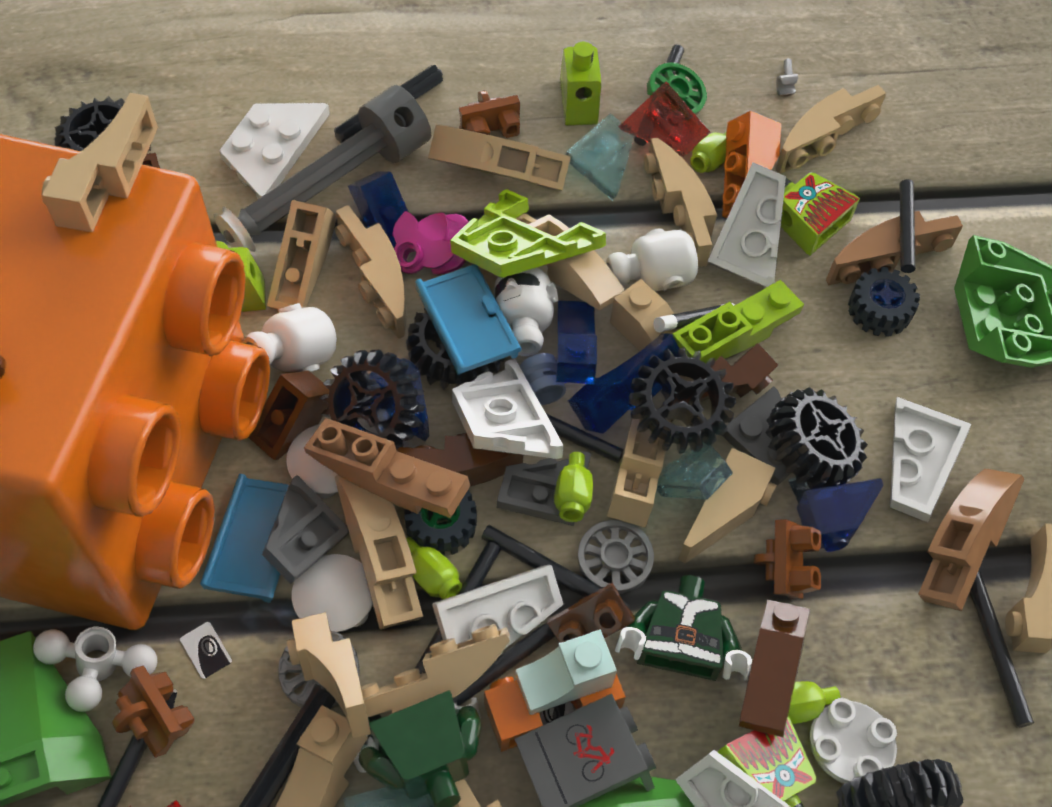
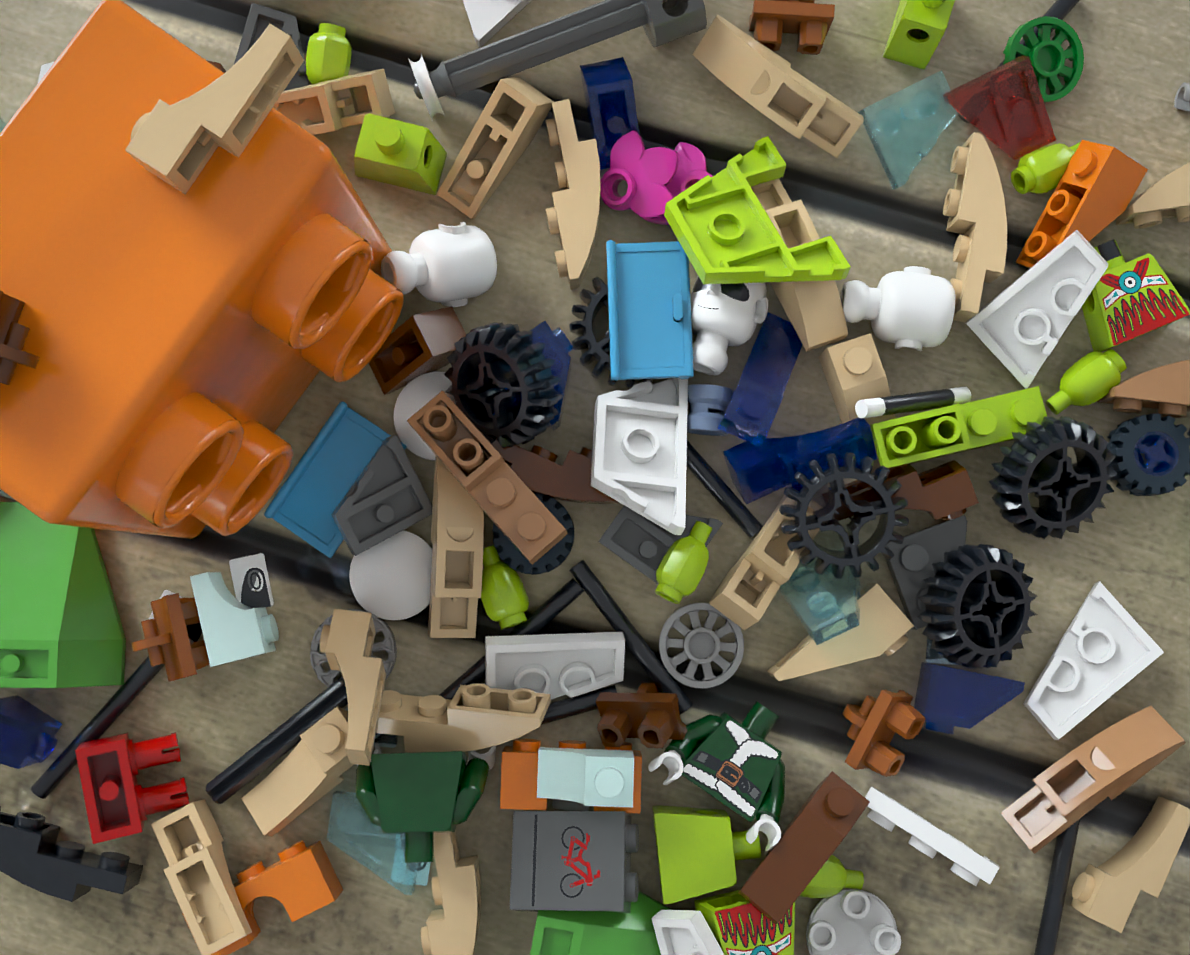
camera: 25 degrees right, 25 degrees up
(85, 691) = (117, 594): white piece -> none
(204, 684) = (227, 625): none -> light aqua arch
(687, 717) = (697, 851): none -> lime torso
(813, 267) = (1088, 380): none -> lime plant
(834, 352) = (1041, 465): none -> black gear
(881, 626) = (930, 839): none -> white wing

